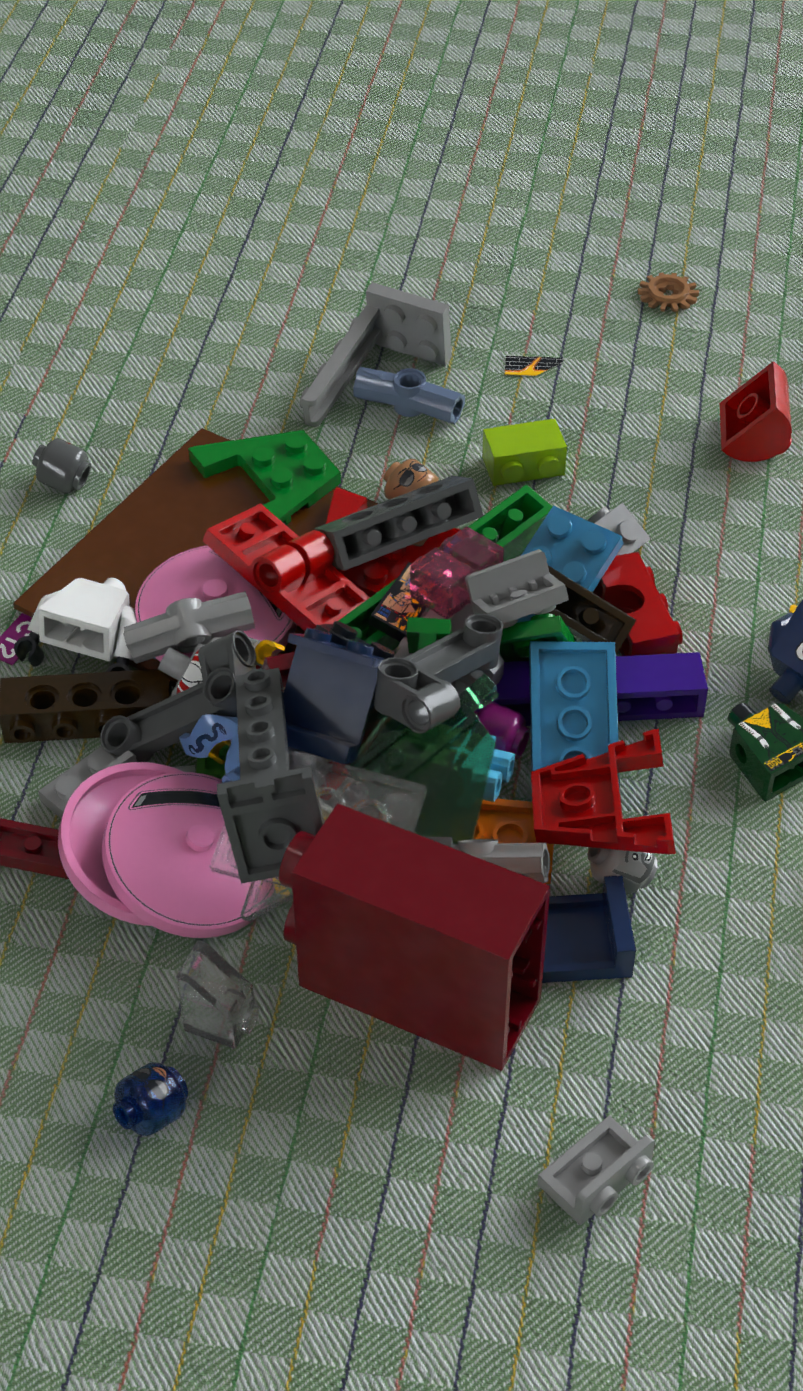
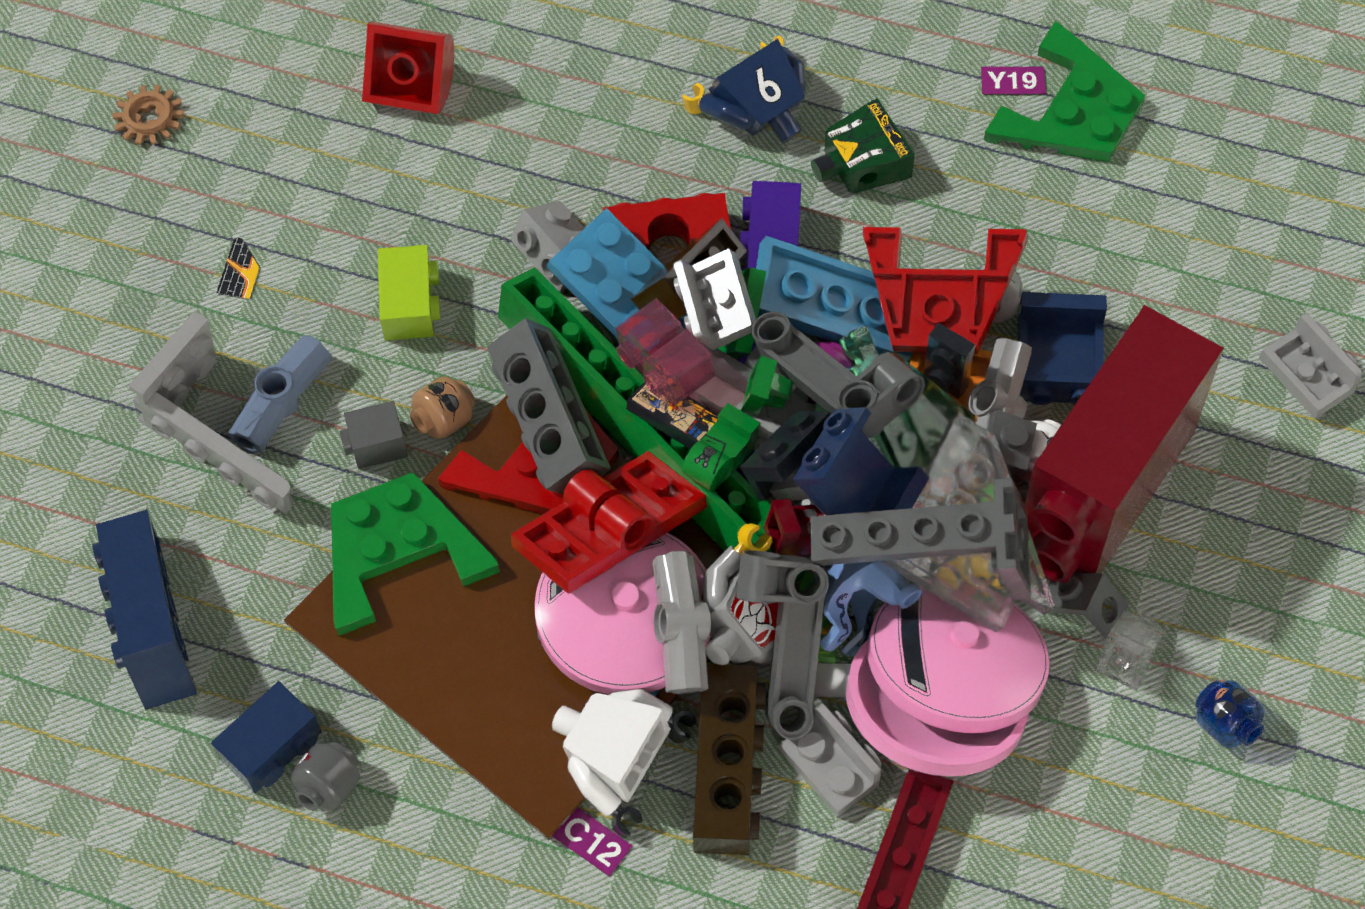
camera: 80 degrees left, 15 degrees up
(98, 429) = (267, 738): none -> dark blue brick
(197, 345) = (142, 609): none -> dark blue wedge
(275, 959) = (1085, 596): none -> dark grey bracket
(369, 623) = (722, 448): none -> green leg
(376, 450) = (374, 435): none -> dark grey brick
(507, 799) = (949, 360): none -> black plate

